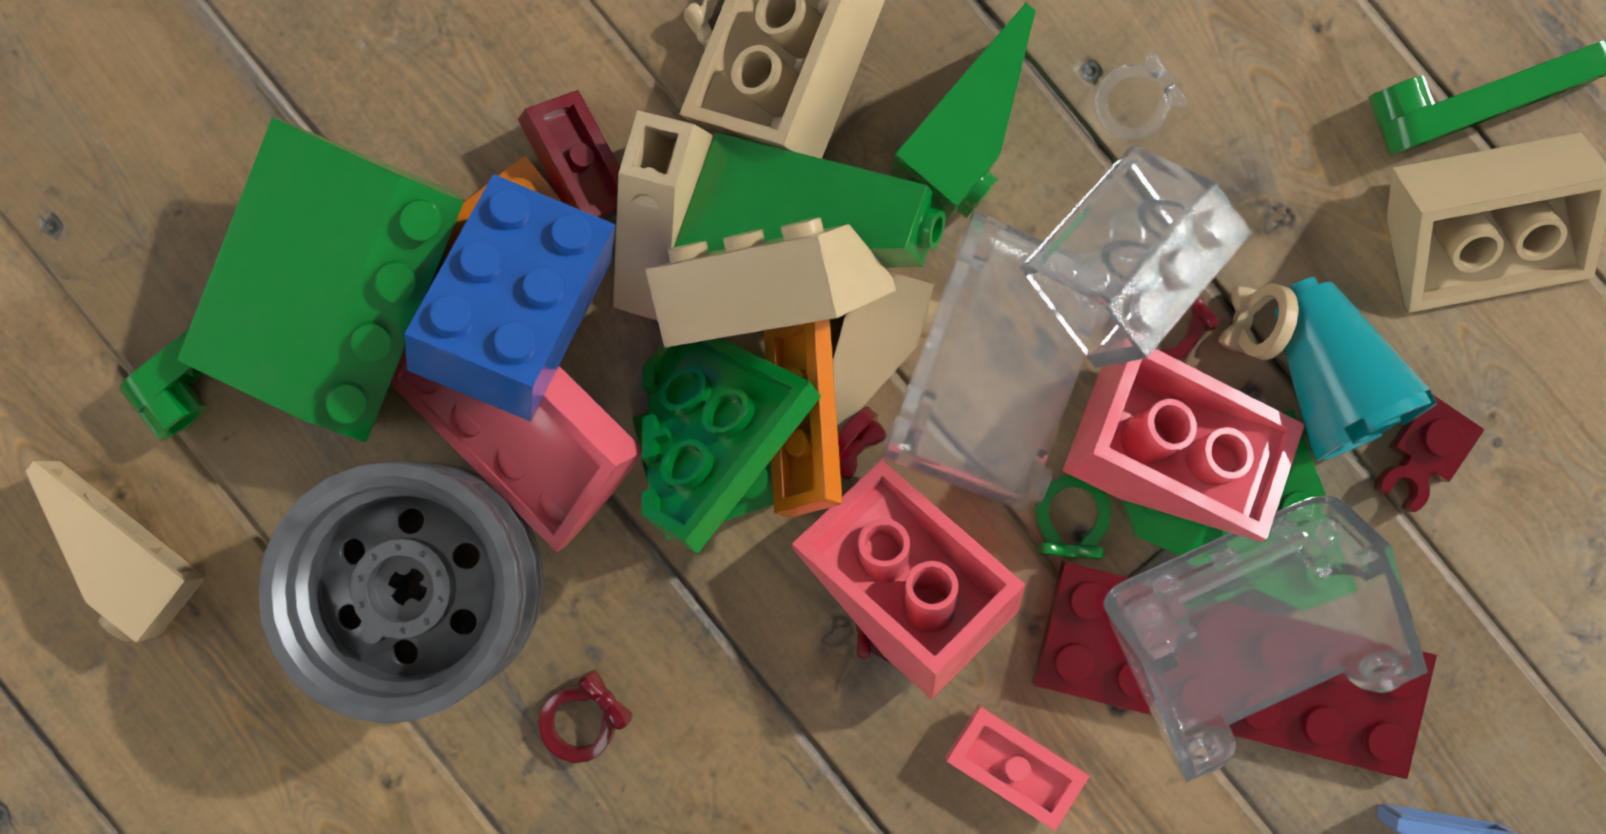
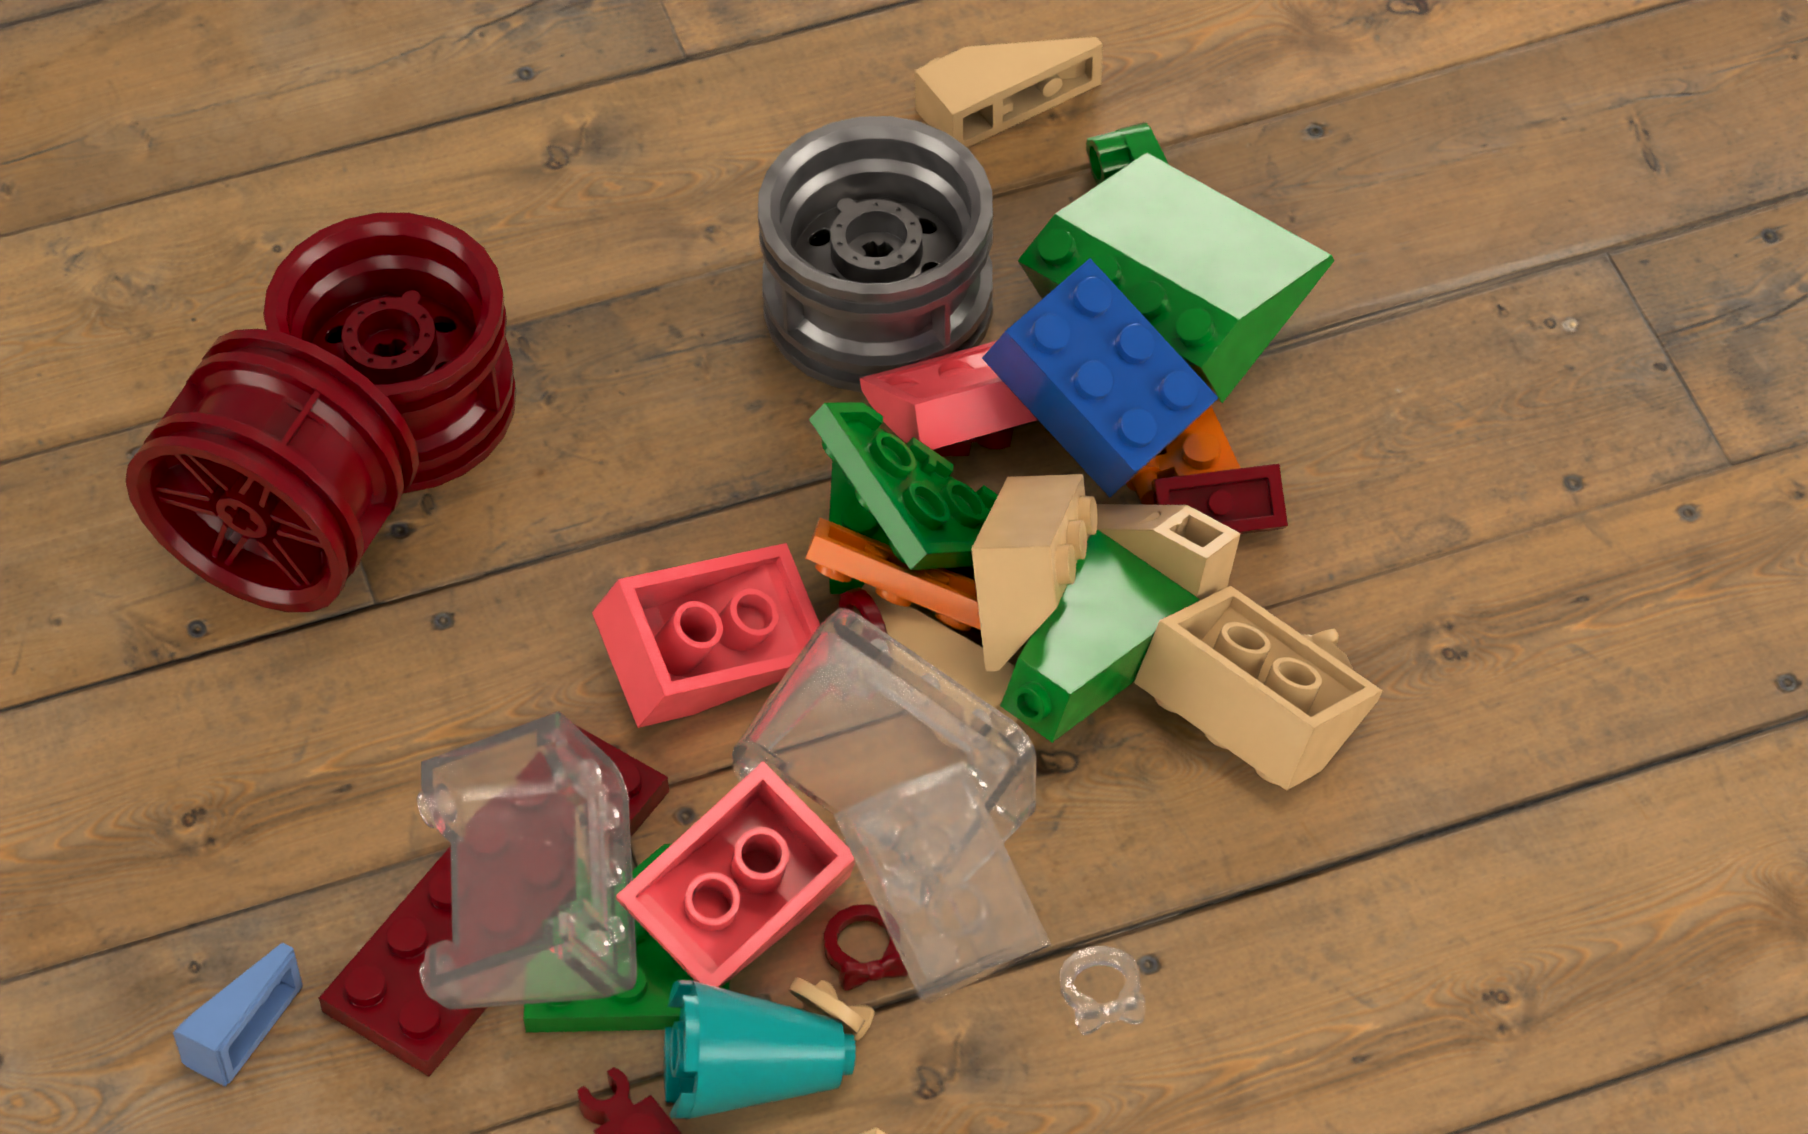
camera: 105 degrees right, 35 degrees down
(590, 687) = (691, 397): dark red piece -> none
(968, 126) = (1125, 799): green slope -> none
(1016, 767) = (493, 680): coral plate -> none
(1088, 546) = (687, 779): green piece -> none

